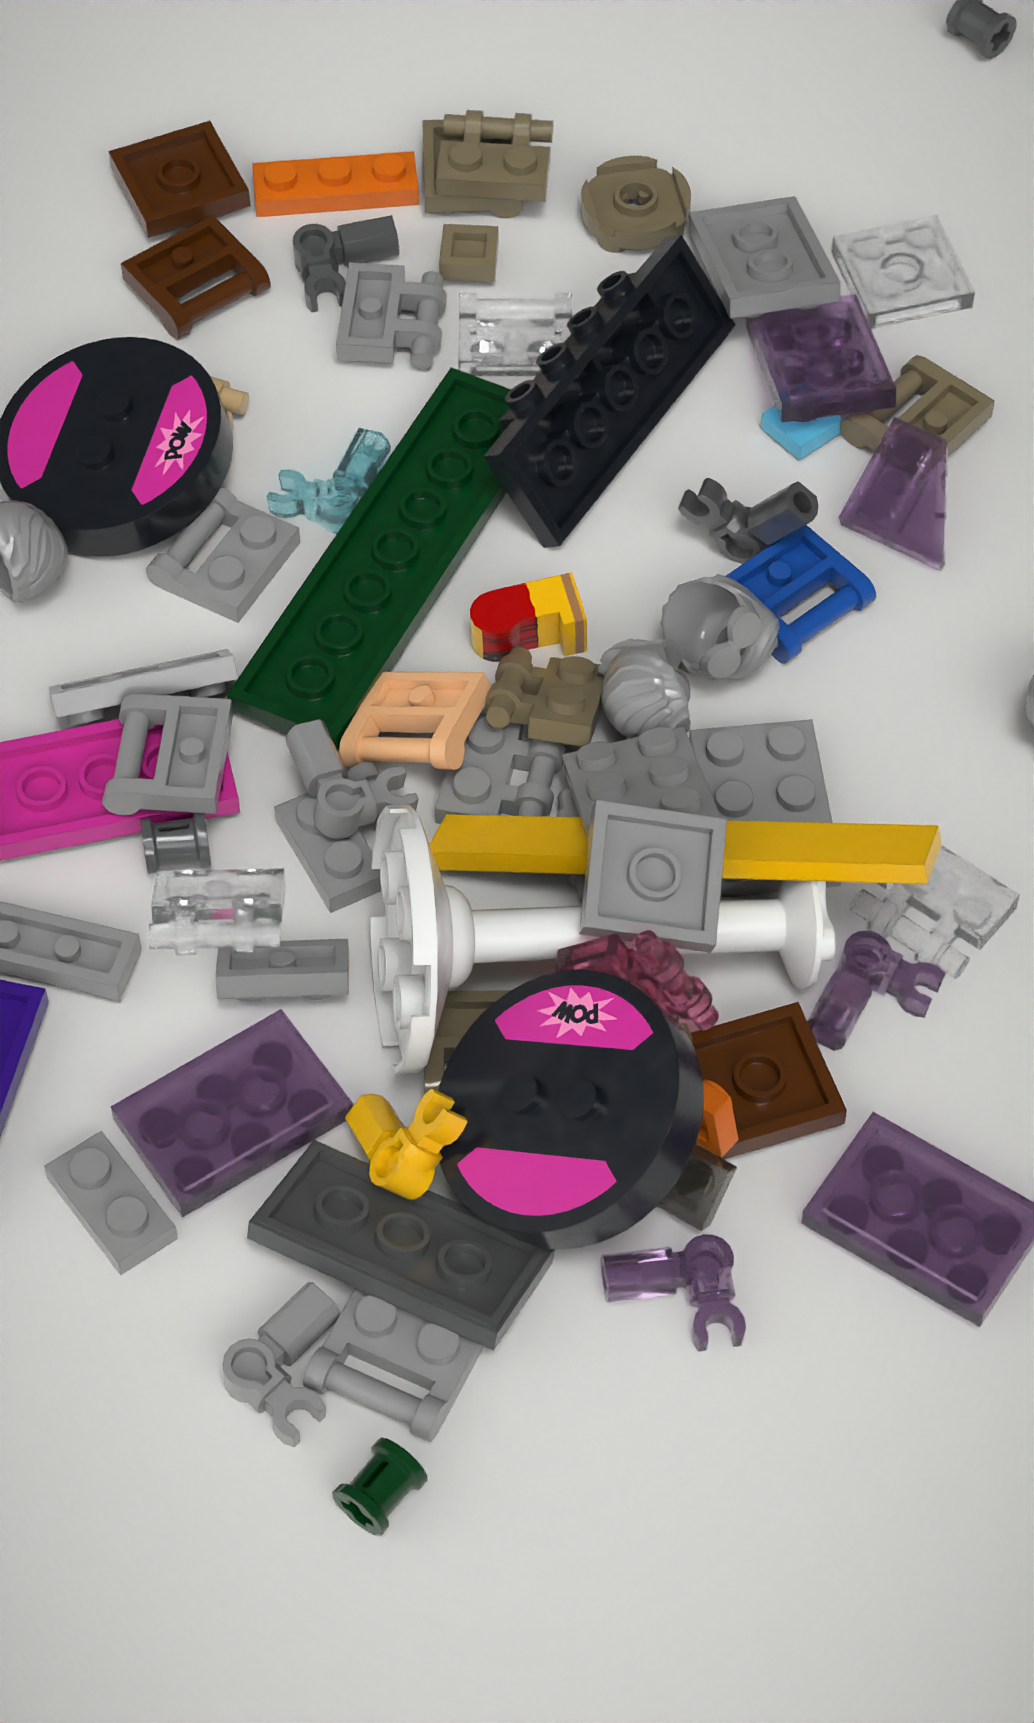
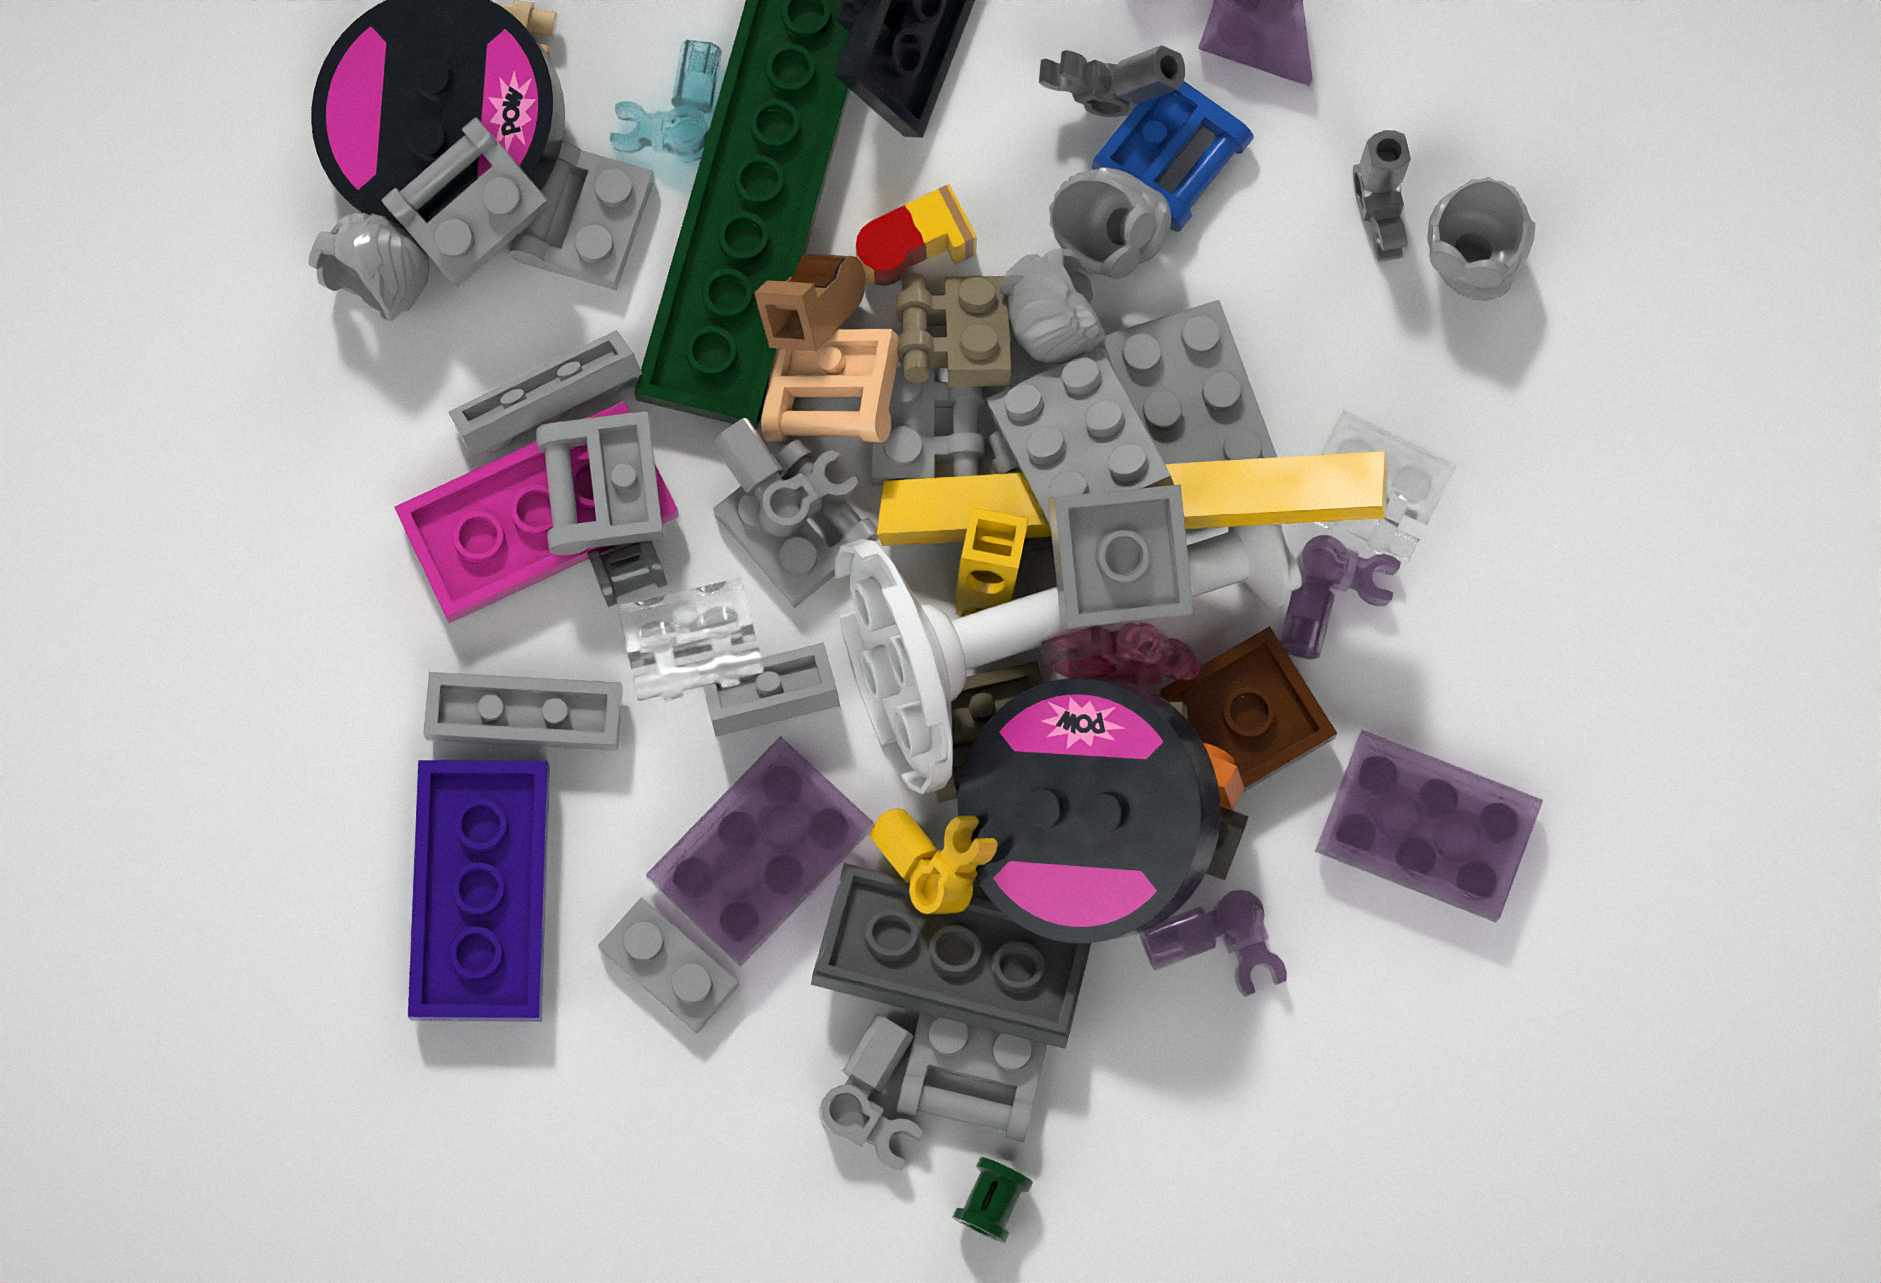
camera: 15 degrees left, 20 degrees up
(124, 518) = (478, 219): none -> light grey plate
(414, 642) = (815, 298): none -> medium nougat leg
(529, 871) = (989, 560): none -> yellow leg
(990, 645) = (1378, 191): none -> flat silver bar

